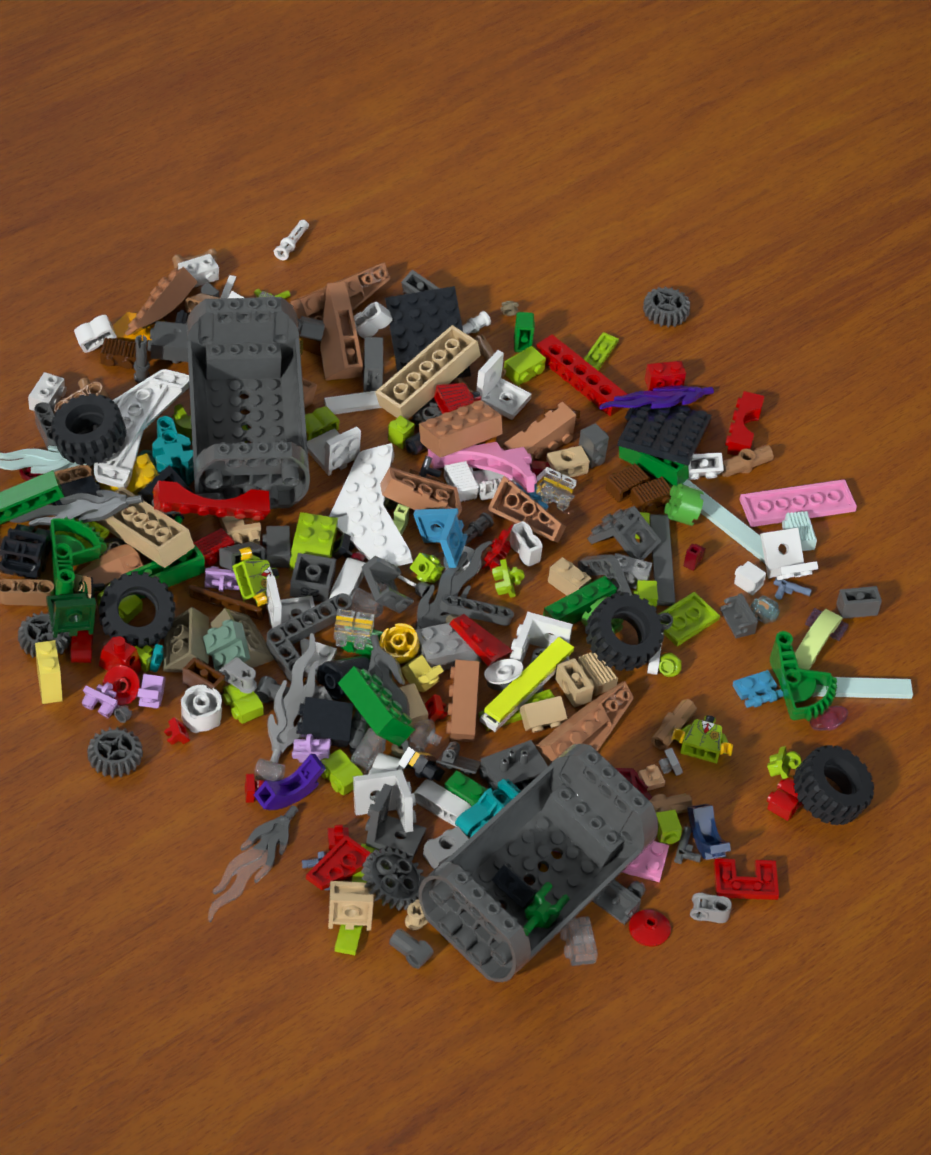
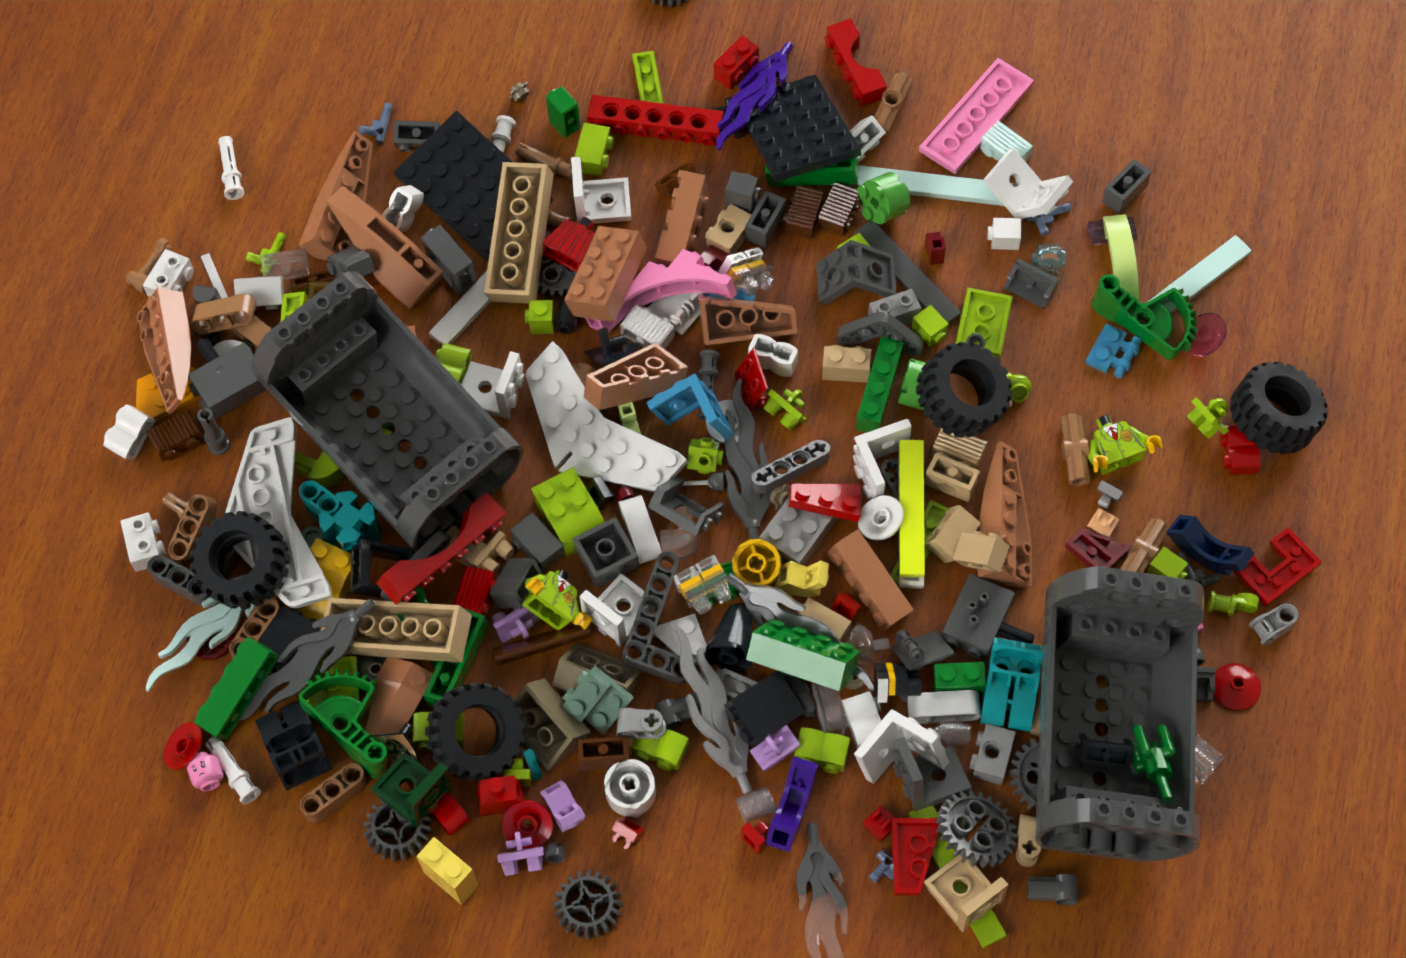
camera: 30 degrees left, 15 degrees up
(403, 273) = (378, 125): none -> sand blue hose
(432, 820) = (953, 733): none -> clear brick
(548, 728) = (981, 551): none -> tan brick
(595, 468) = (765, 219): none -> dark grey brick
(690, 877) = (1242, 602): none -> lime connector

